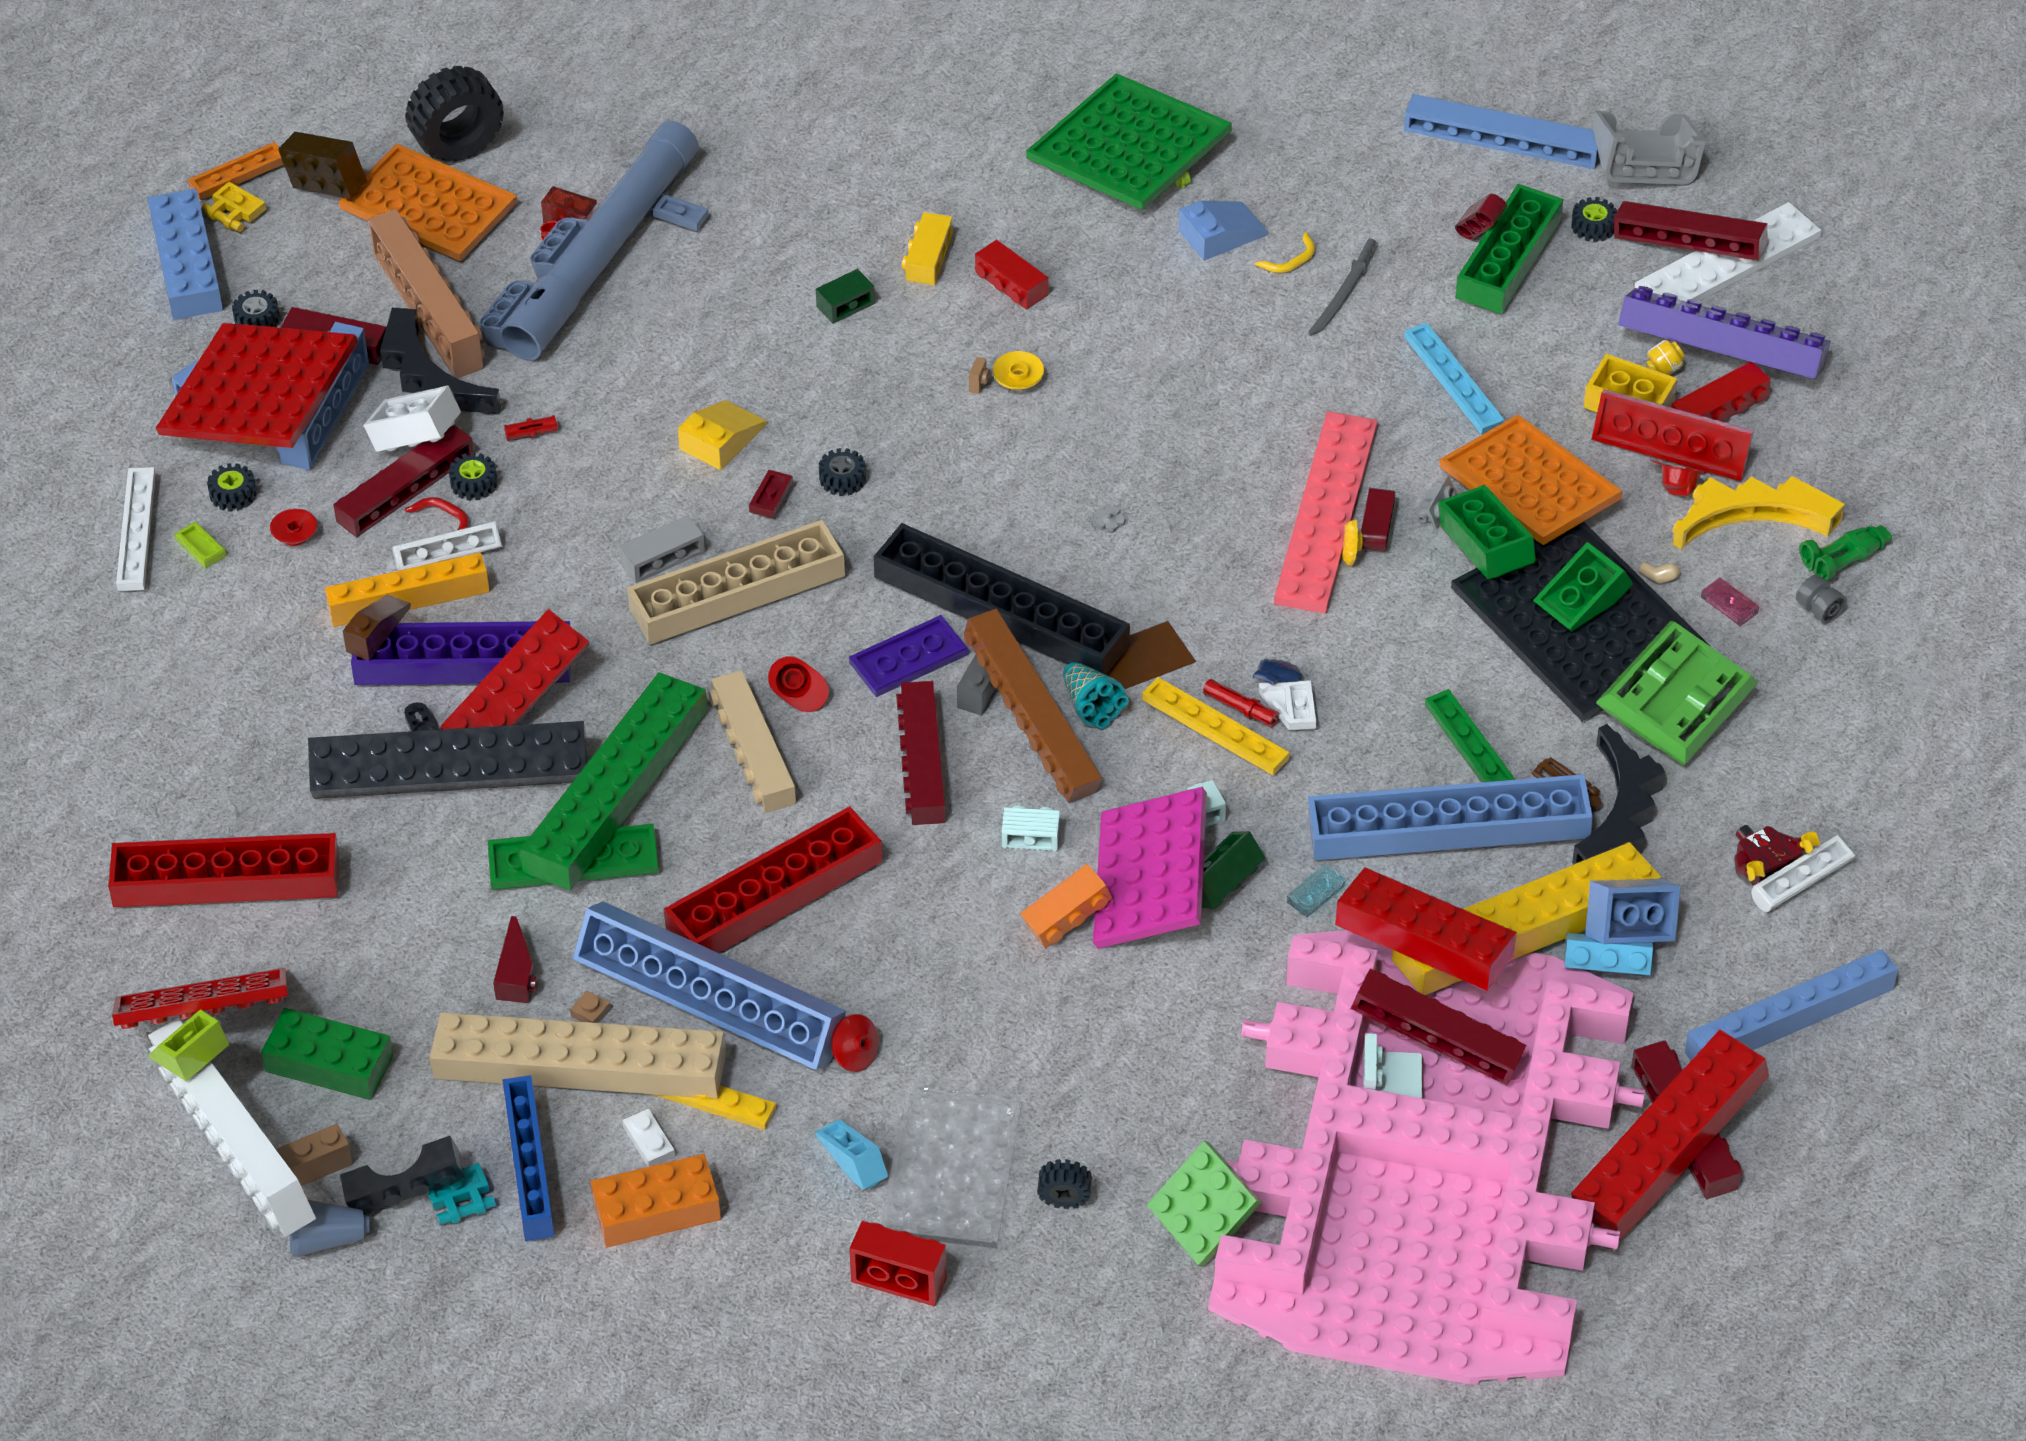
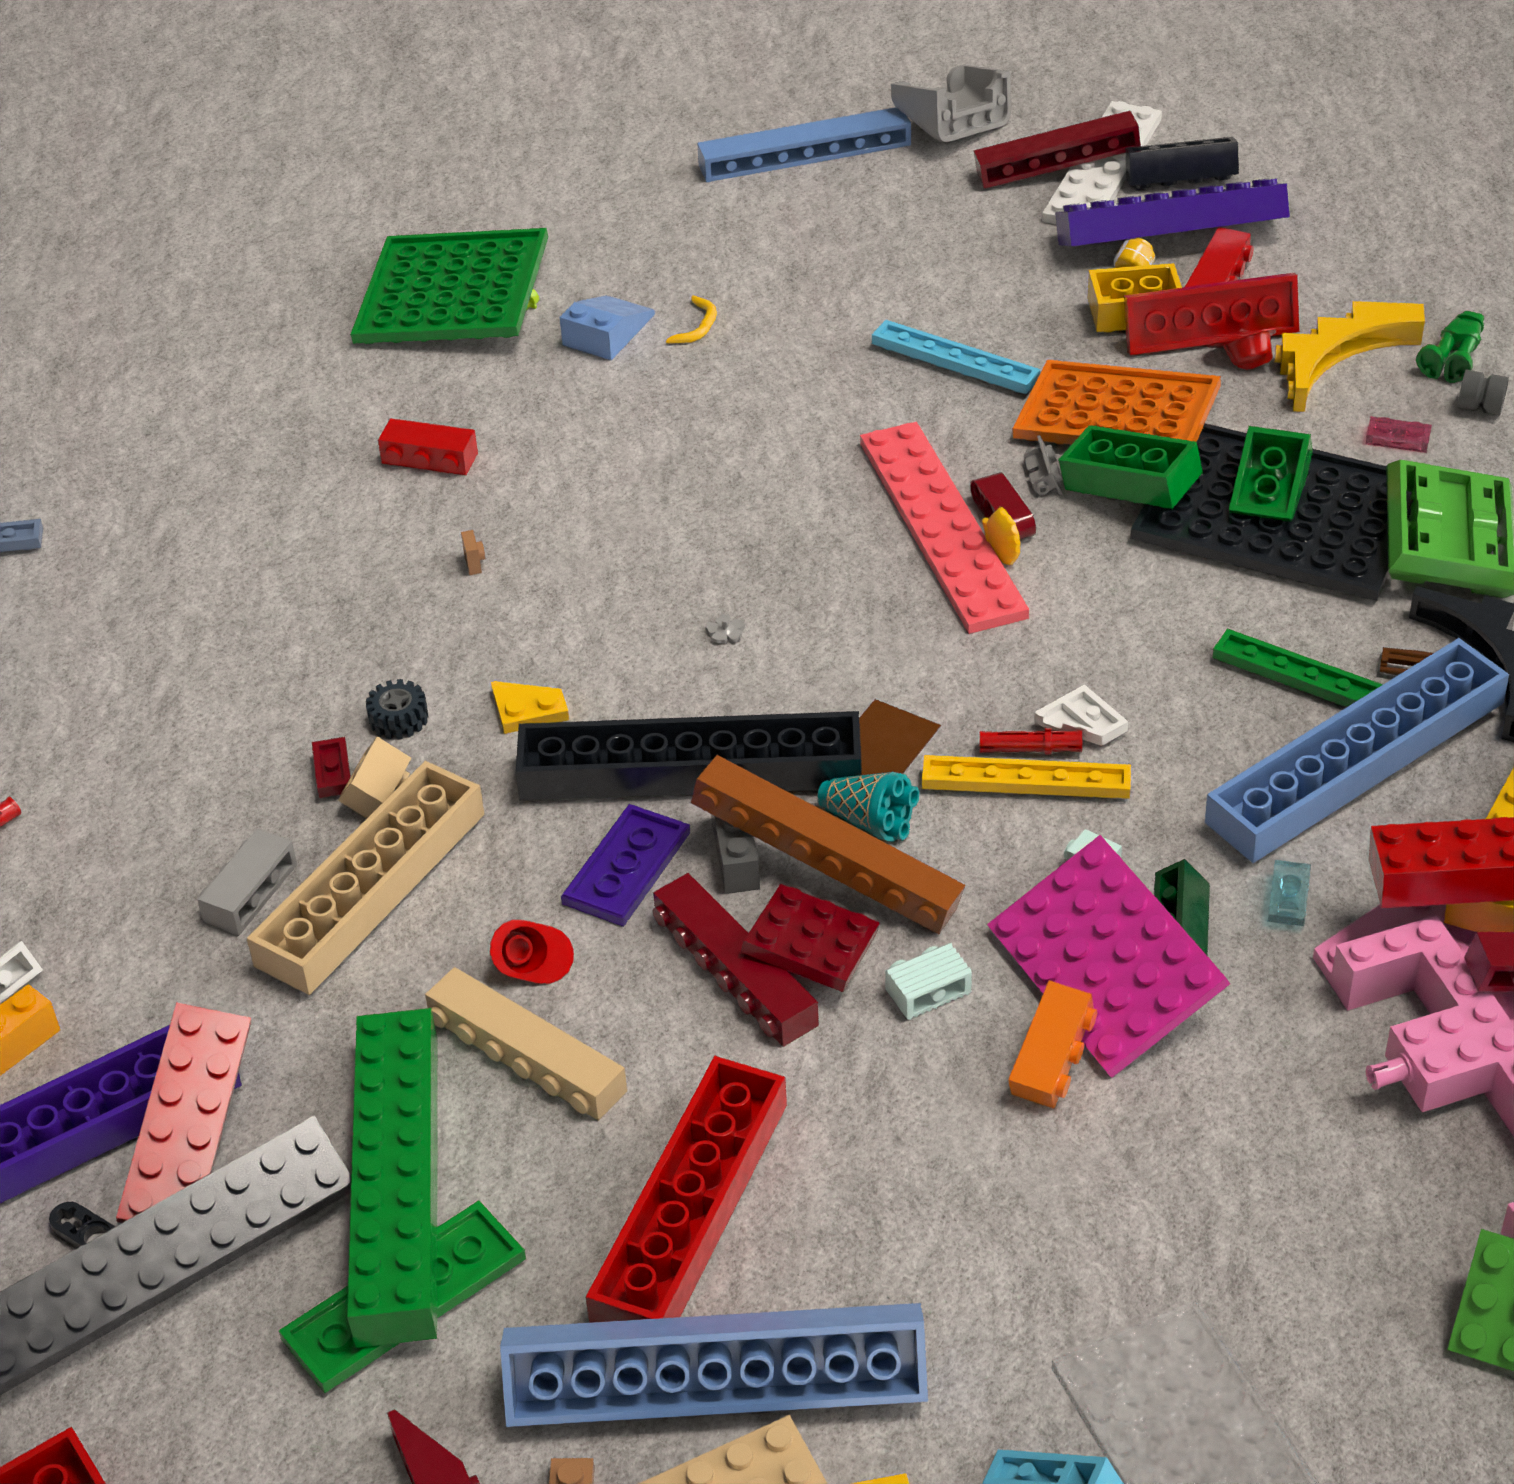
camera: 30 degrees left, 5 degrees down
(718, 432) = (220, 733): yellow slope -> none
(789, 514) = (375, 777): none -> tan brick
(845, 296) = (262, 538): dark green brick -> none
(847, 1039) = (949, 1339): red dish -> none
(927, 248) = (317, 459): yellow brick -> none
(931, 511) = (528, 704): none -> yellow wing
(977, 762) = (810, 937): none -> dark red plate
(1018, 370) = (511, 529): yellow dish -> none
(1064, 1184) = (1347, 1377): black wheel -> none
(1277, 671) = (1040, 693): dark blue animal -> none
(1358, 268) = (773, 307): dark grey sword -> none
(1480, 216) = (861, 208): dark red beam -> none
(1509, 249) = (906, 229): green brick -> none
(1593, 219) = (955, 179): black wheel -> none
(1659, 574) = (1319, 434): tan arm -> none
(1784, 287) = (1182, 161): none -> black brick

